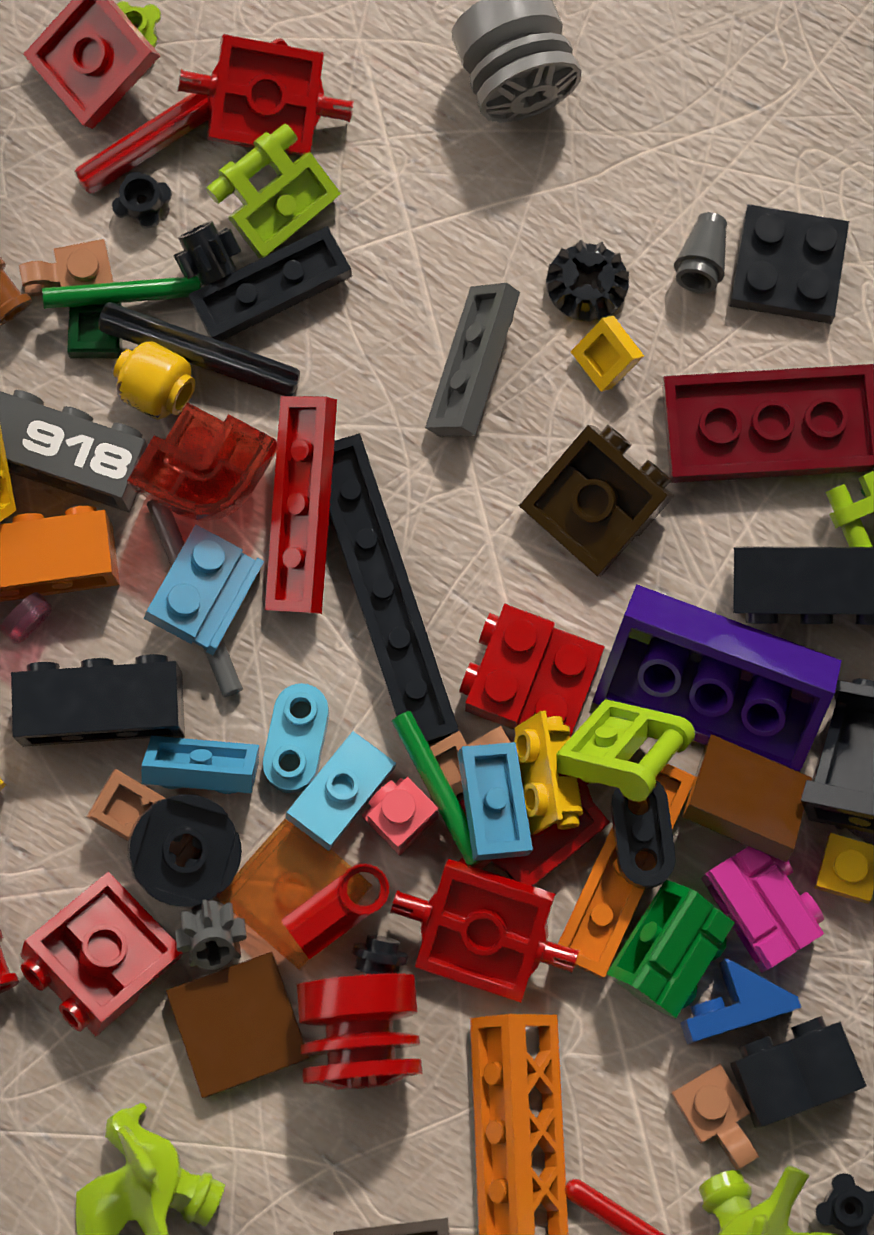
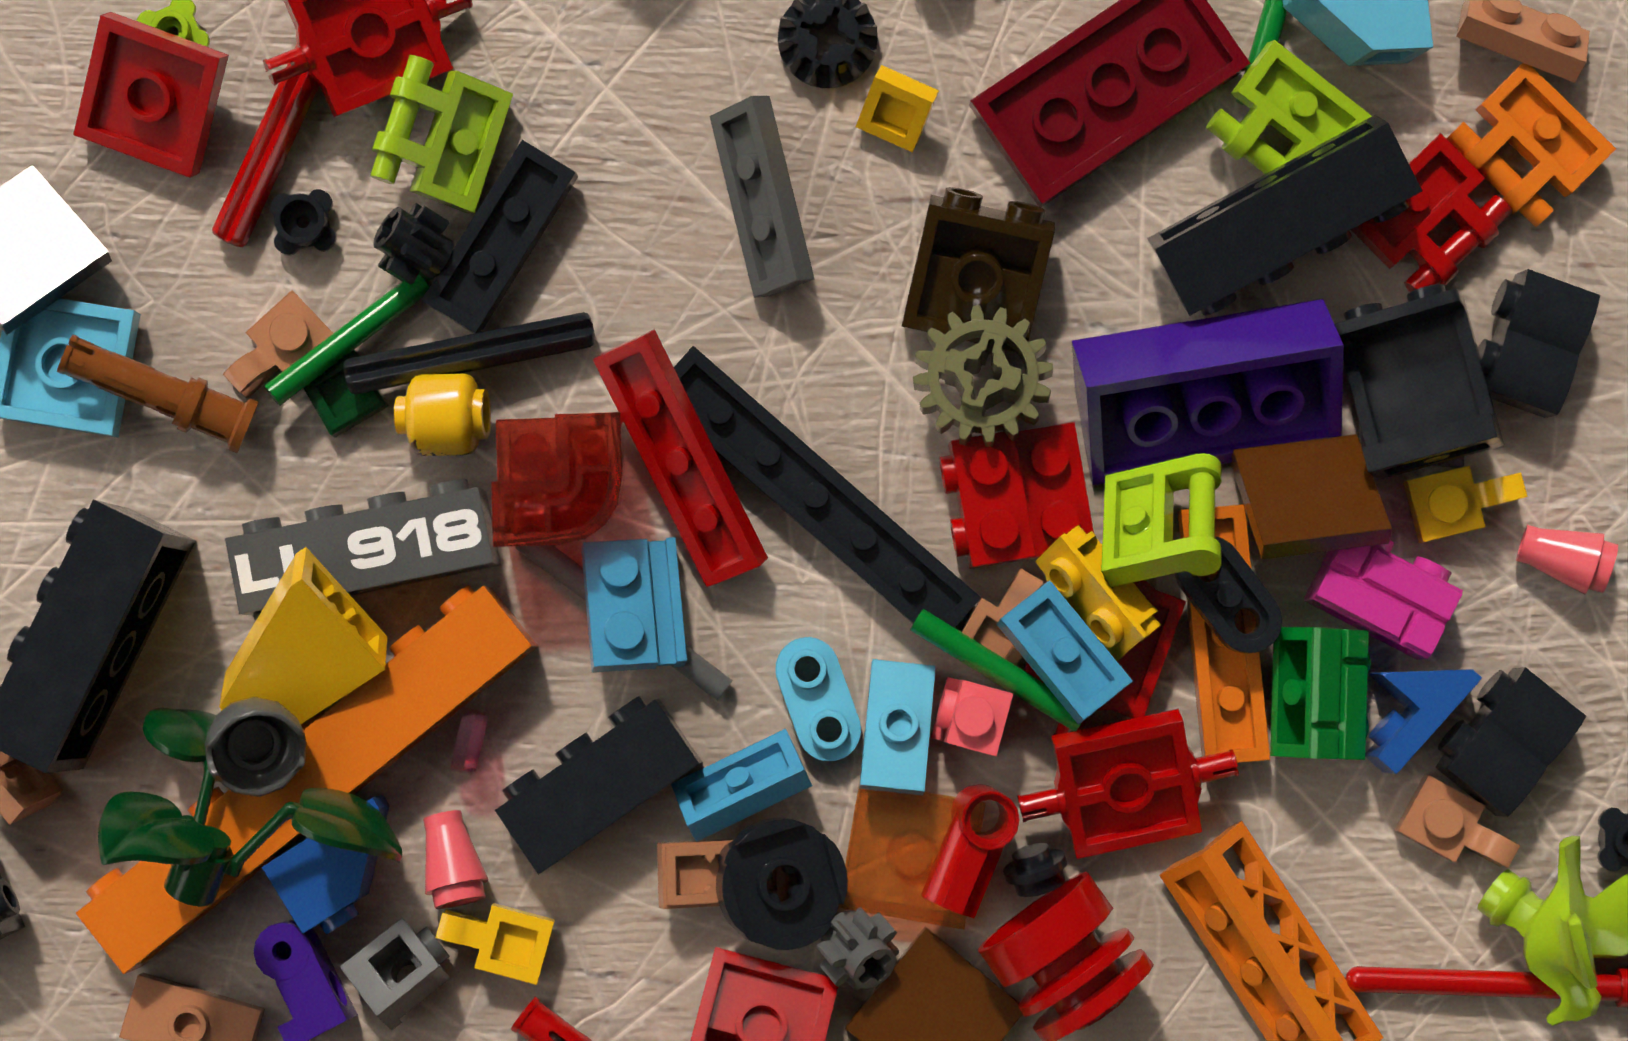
camera: 30 degrees left, 10 degrees up
(554, 592) = (1007, 383): none -> olive gear

